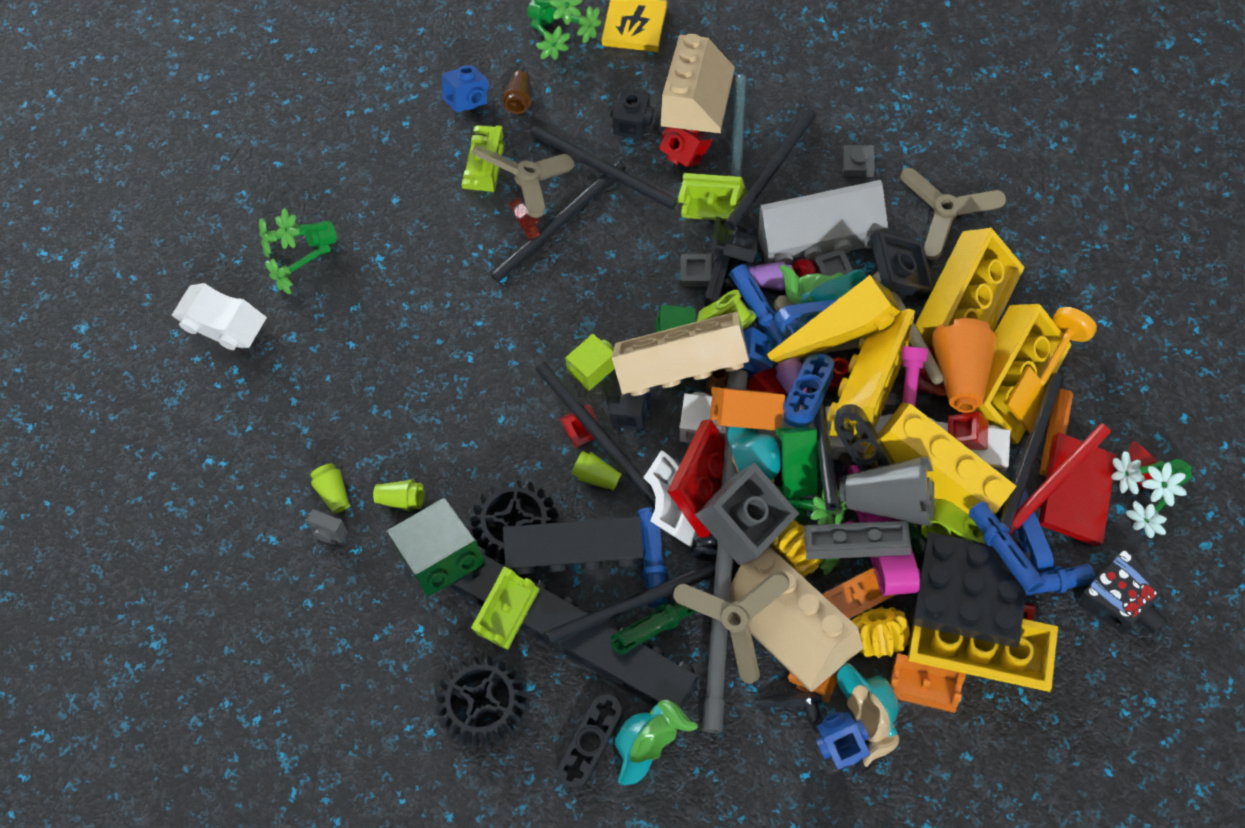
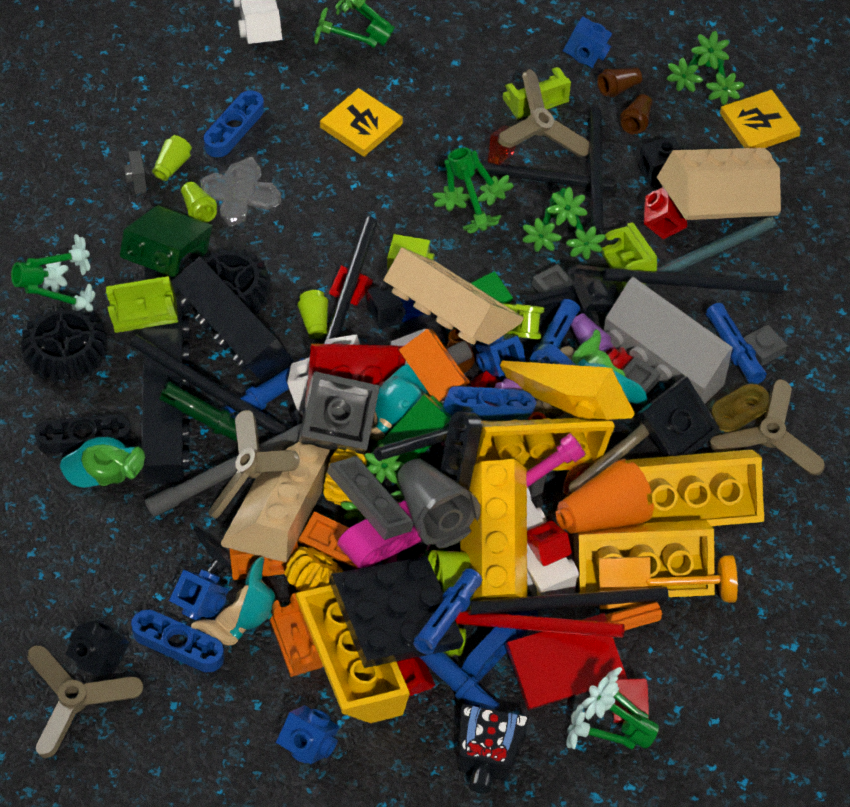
camera: 50 degrees right, 10 degrees down
(326, 426) = (233, 135): none -> blue beam
(400, 683) = (31, 274): none -> plant
(407, 311) = (361, 122): none -> yellow tile
(414, 451) = (240, 189): none -> clear plant
(546, 257) = (462, 164): none -> plant
(565, 103) = (636, 115): none -> reddish brown cone
(625, 214) = (564, 208): none -> bright green plant
(842, 178) = (742, 353): none -> blue pin
(884, 764) = (170, 627): none -> blue beam
(911, 217) = (736, 408): none -> clear yellow plate
(1037, 731) = (308, 735): none -> blue brick

